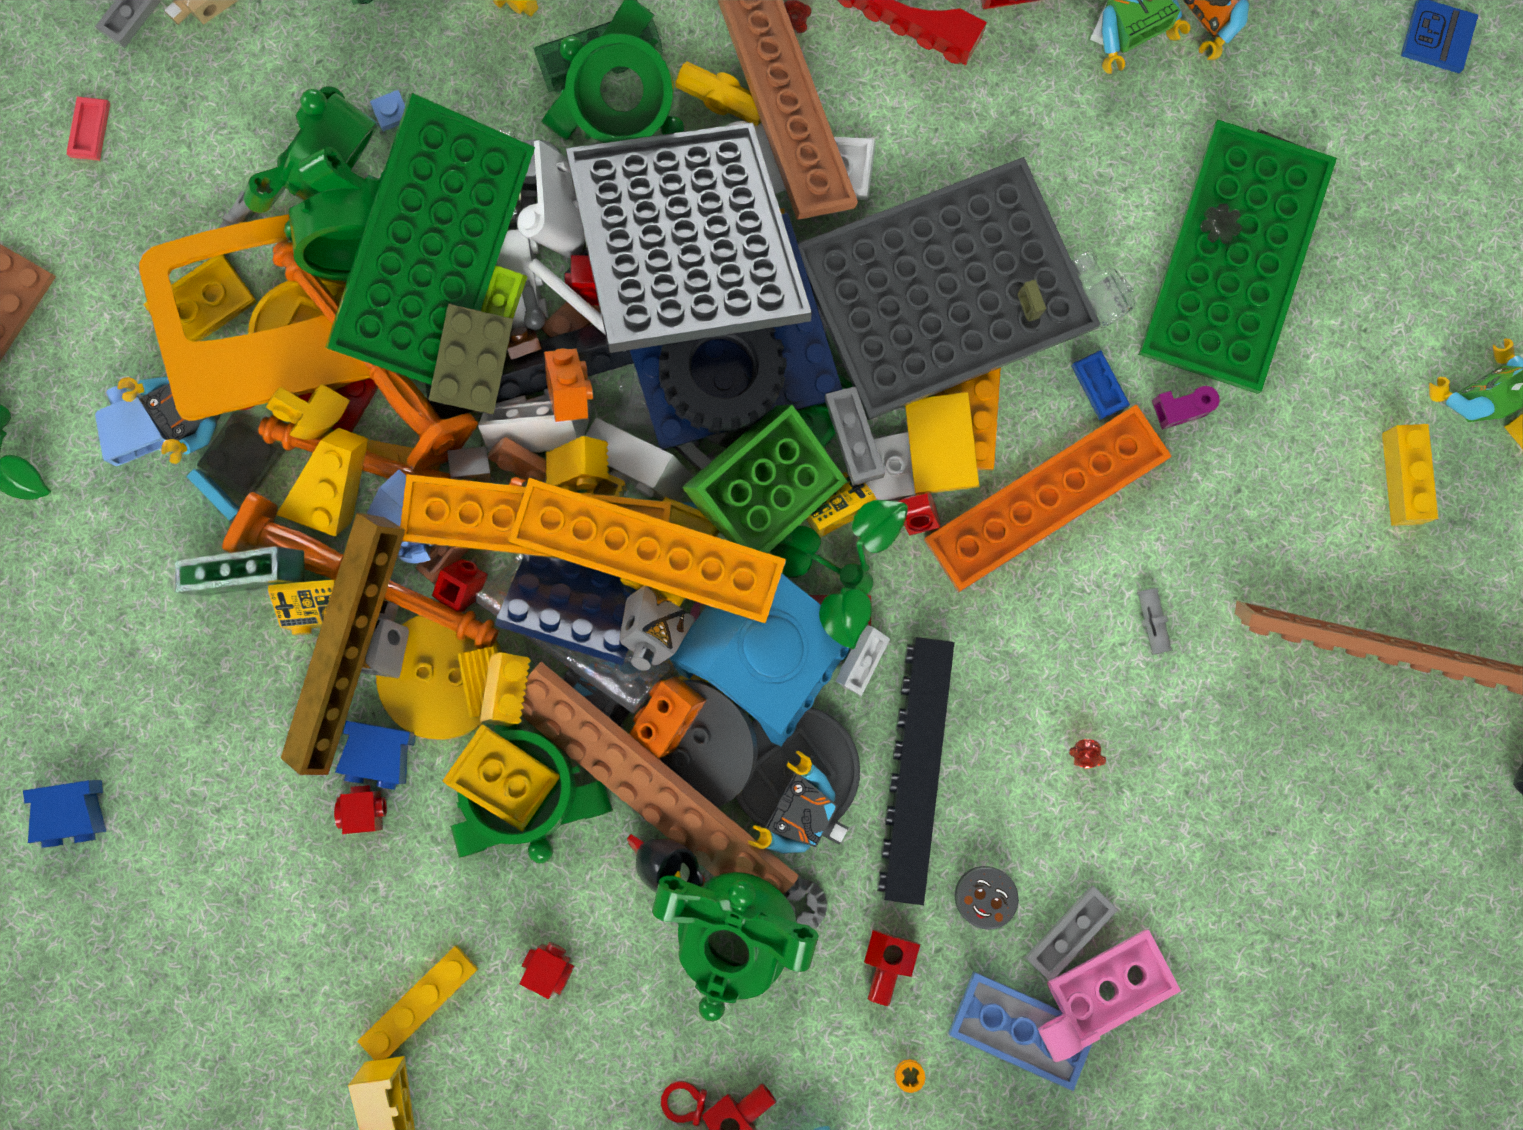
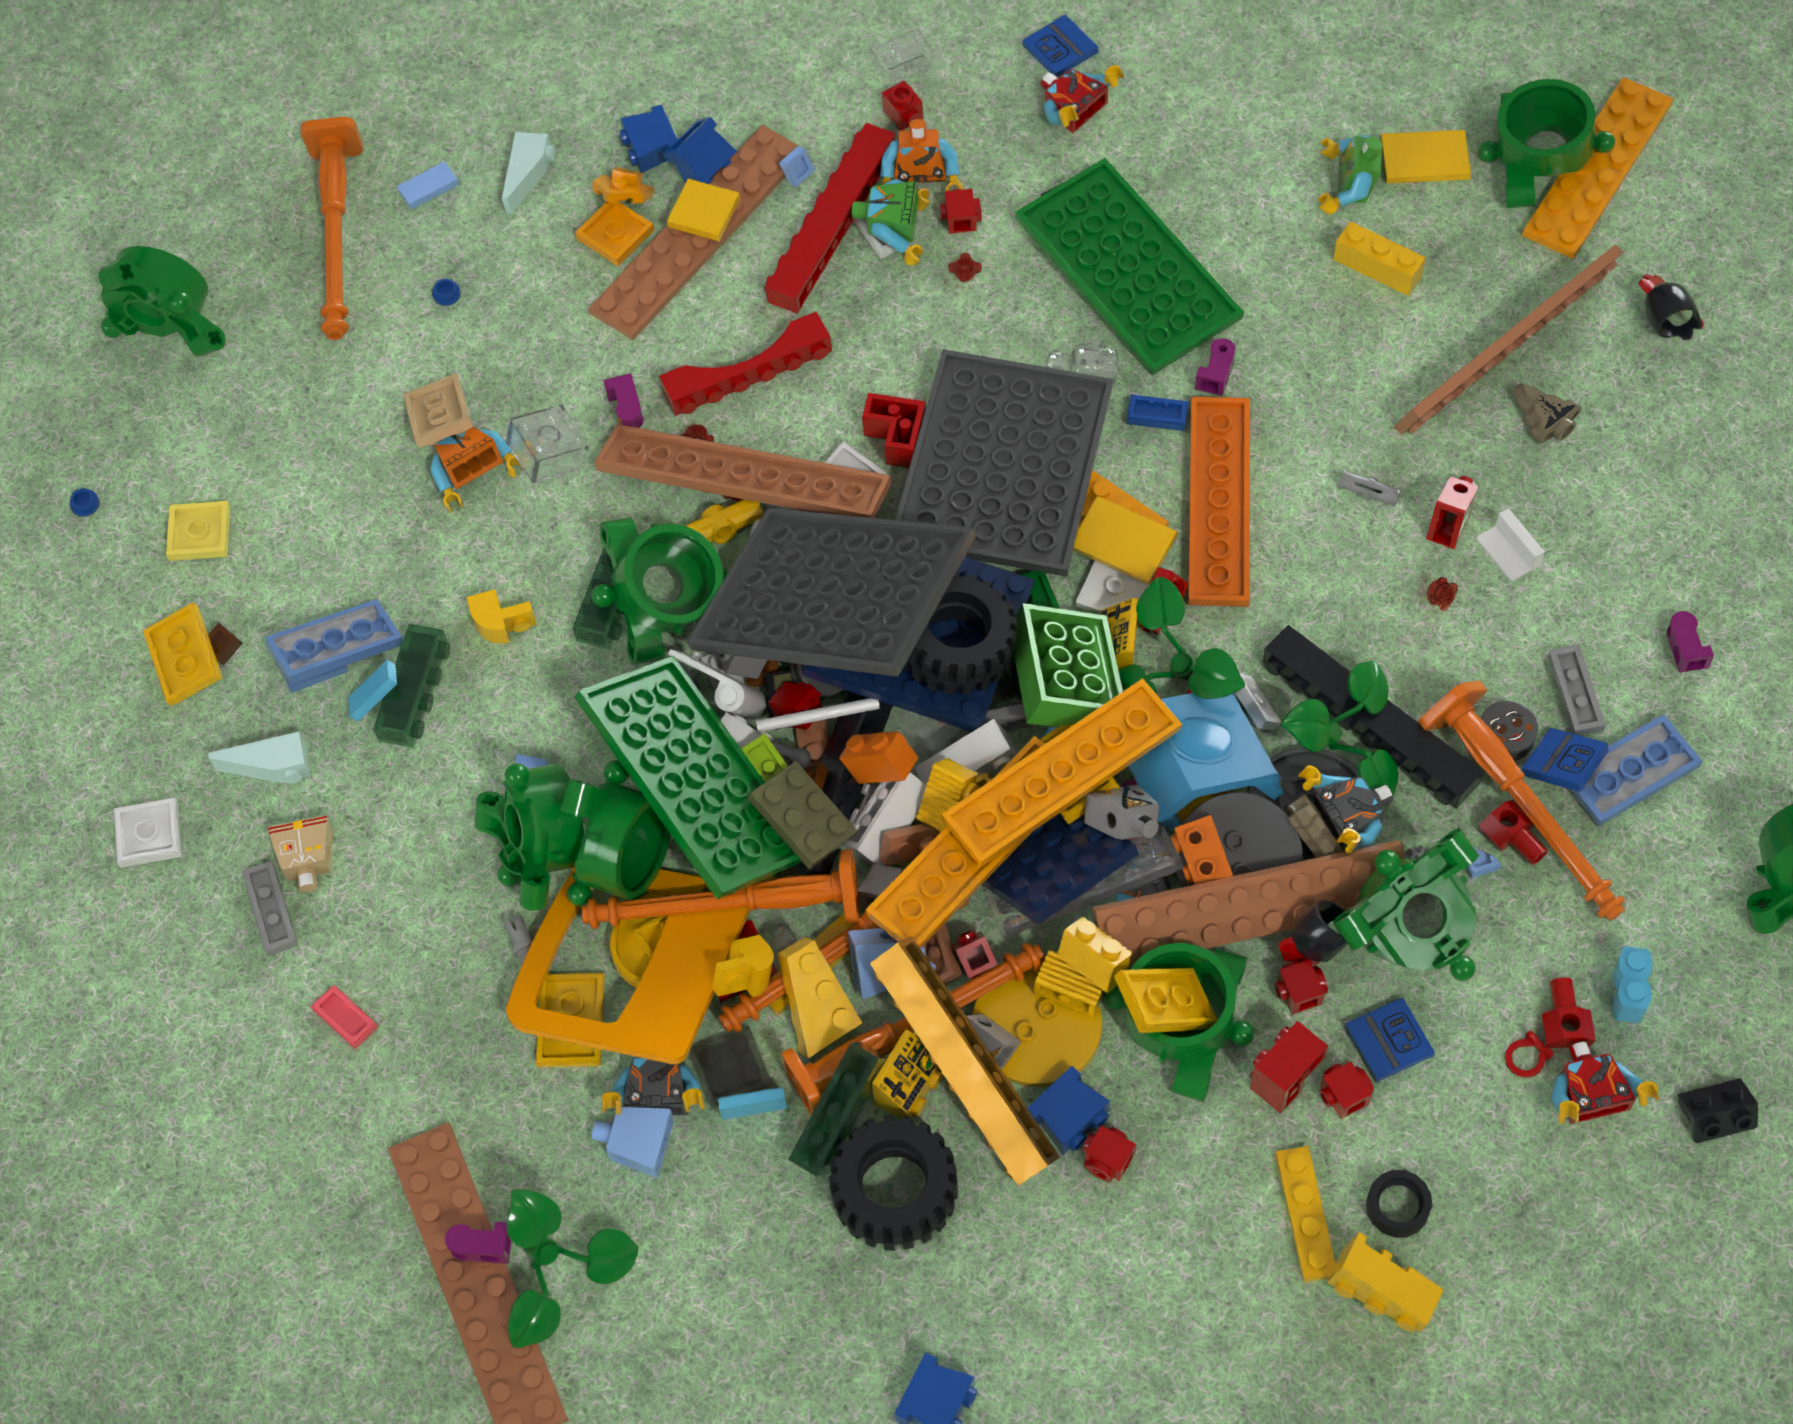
camera: 50 degrees left, 20 degrees down
(175, 649) = (901, 1223): none -> black tyre
(376, 418) = (781, 935): none -> clear plate
(448, 1085) = (1391, 1227): none -> black tyre
(523, 913) = (1282, 1070): none -> red brick
(616, 872) = (1301, 985): none -> red brick
(620, 976) = (1389, 1039): none -> blue tile
(761, 793) = (1312, 827): none -> dark tan rock
(841, 949) = (1483, 865): none -> light blue tile
(849, 731) = (1314, 730): none -> green plant
(854, 436) = (1074, 589): light grey plate -> none
(899, 1077) = (1620, 866): light orange bush -> none
(924, 171) = (897, 422): none -> red brick
(939, 916) = (1492, 756): none -> orange piece
(989, 968) = (1565, 759): none -> blue tile
(1031, 300) = (1062, 406): olive tile -> none
(1086, 1013) = (1645, 712): bright pink hinge -> none
(1132, 125) = (968, 273): none -> clear red plate
(1180, 712) = (1459, 499): none -> red torso
(1180, 785) = (1511, 546): none -> white panel
(1184, 1007) = (1686, 643): none -> magenta leg
(1189, 71) = (961, 210): none -> red brick
(1221, 224) = (1096, 257): clear smoke plant -> none
(1349, 731) = (1546, 414): none -> dark tan rock
(1390, 87) = (1077, 95): none -> torso

